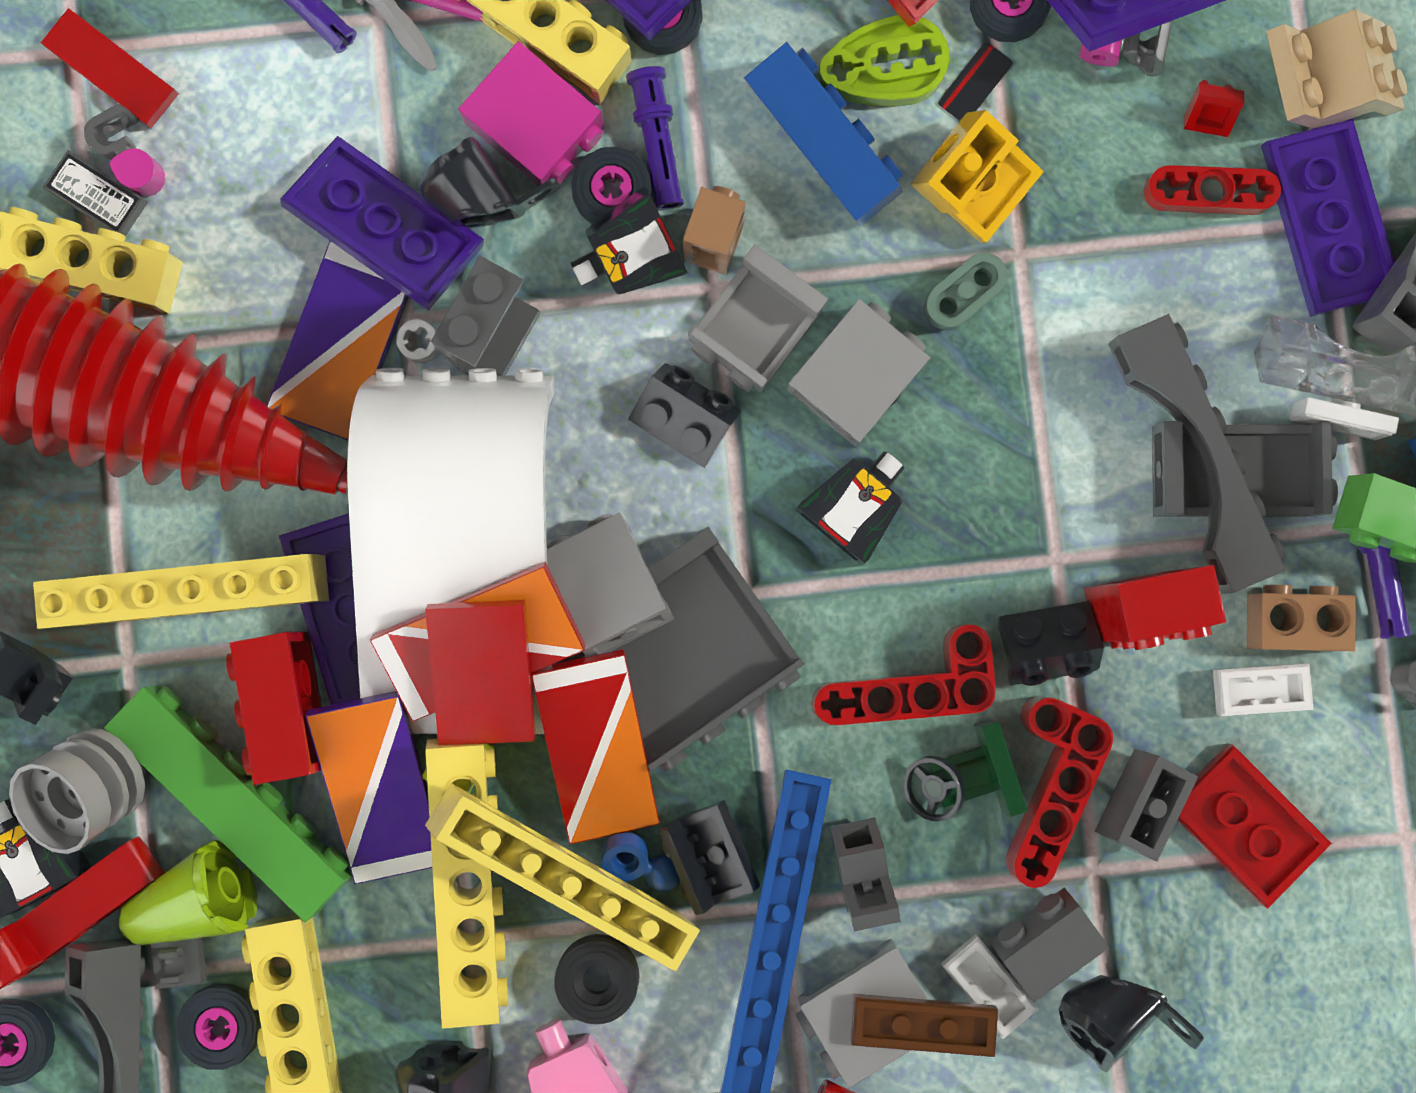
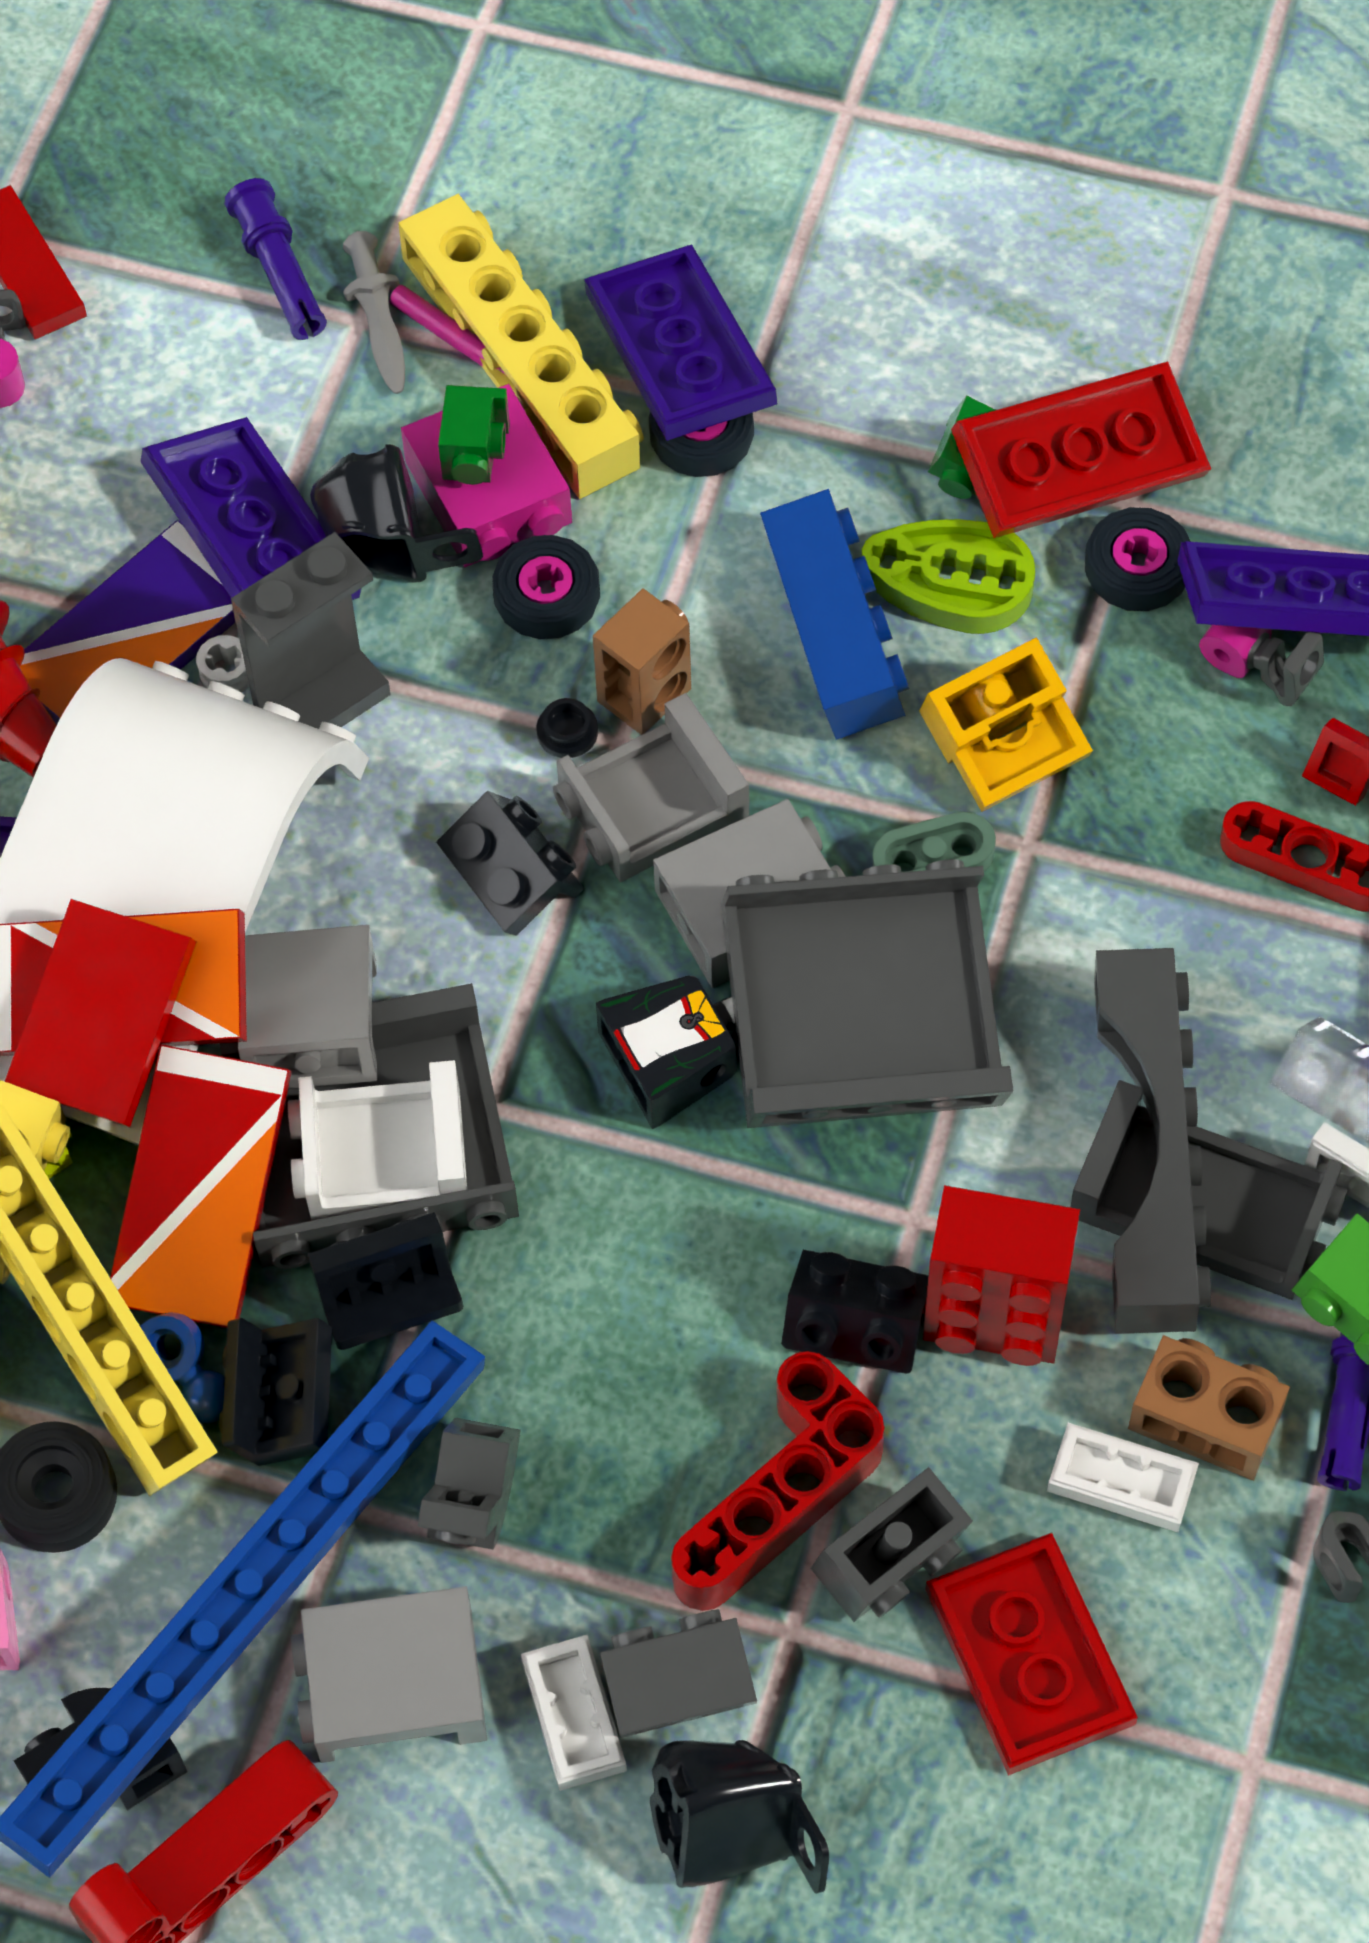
camera: 25 degrees right, 25 degrees down
(517, 100) = (472, 432): none -> green brick
(630, 247) = (532, 645): torso -> none
(653, 116) = (633, 530): dark purple pin -> none
(677, 296) = (567, 728): none -> black plate
(698, 664) = (378, 1143): none -> white panel
(747, 759) = (385, 1281): none -> black bracket
(902, 688) = (638, 1278): red beam -> none
(924, 1025) = (455, 1695): reddish brown tile -> none
(968, 776) = (667, 1434): dark green piece -> none
(971, 429) = (862, 994): none -> dark grey panel
(975, 81) = (1064, 631): black sticker -> none

